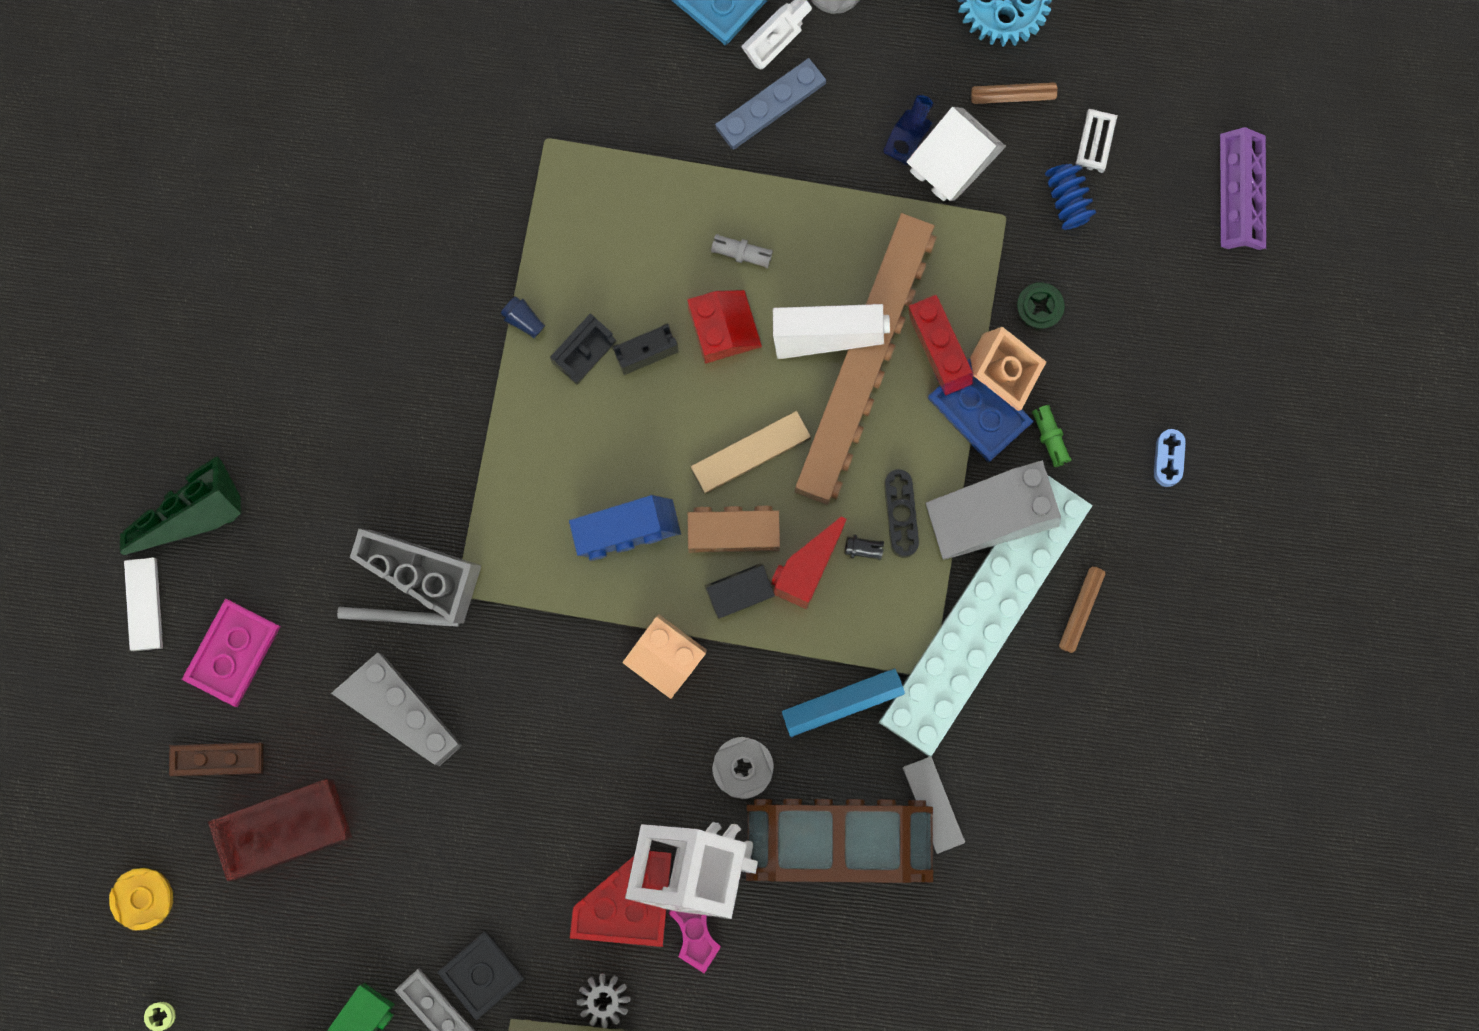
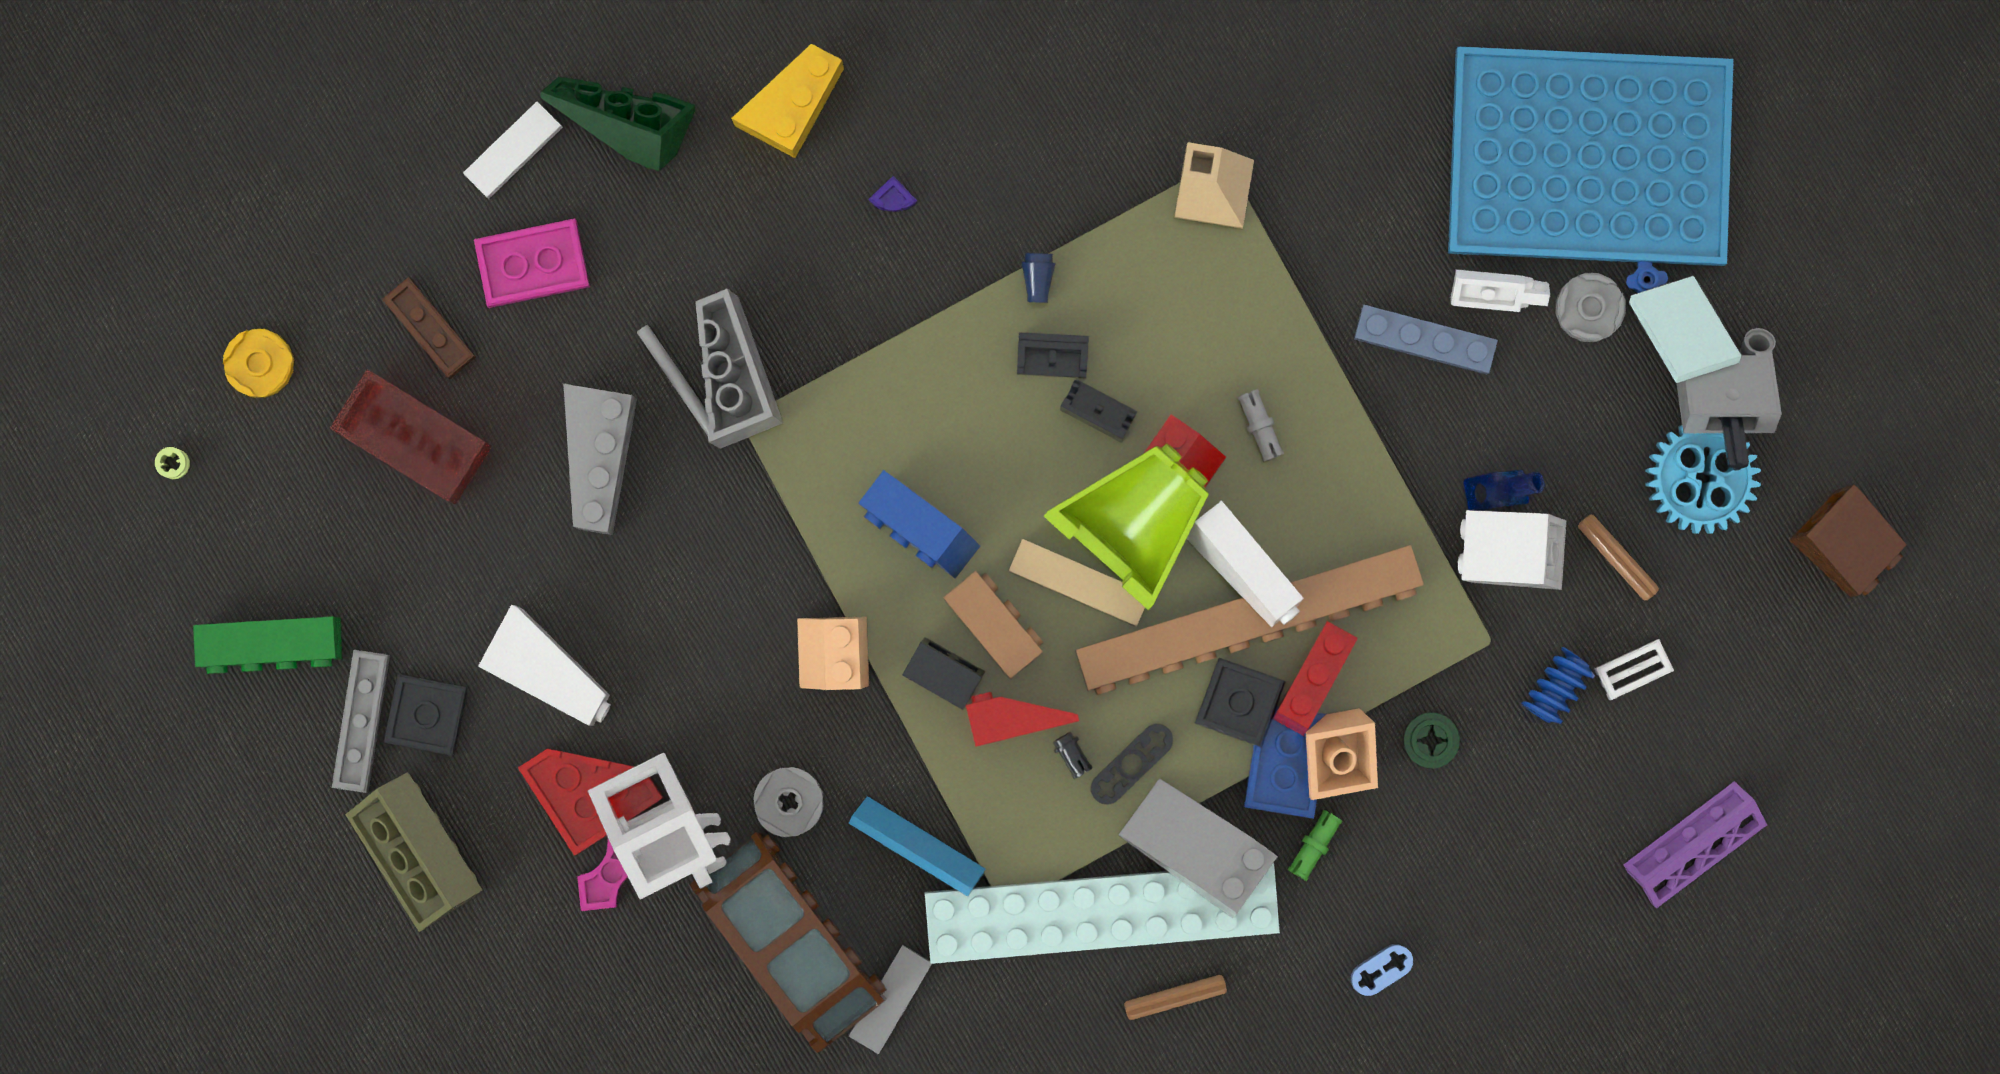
camera: 55 degrees right, 5 degrees up
(269, 389) = (791, 101): none -> yellow wedge
(390, 374) = (892, 197): none -> dark purple tile
(510, 867) = (538, 665): none -> white slope
(556, 156) = (1214, 186): none -> tan slope
(611, 1007) = (474, 841): light grey gear -> none
(740, 374) = (1136, 518): none -> lime cone
(916, 408) = (1240, 702): none -> black tile

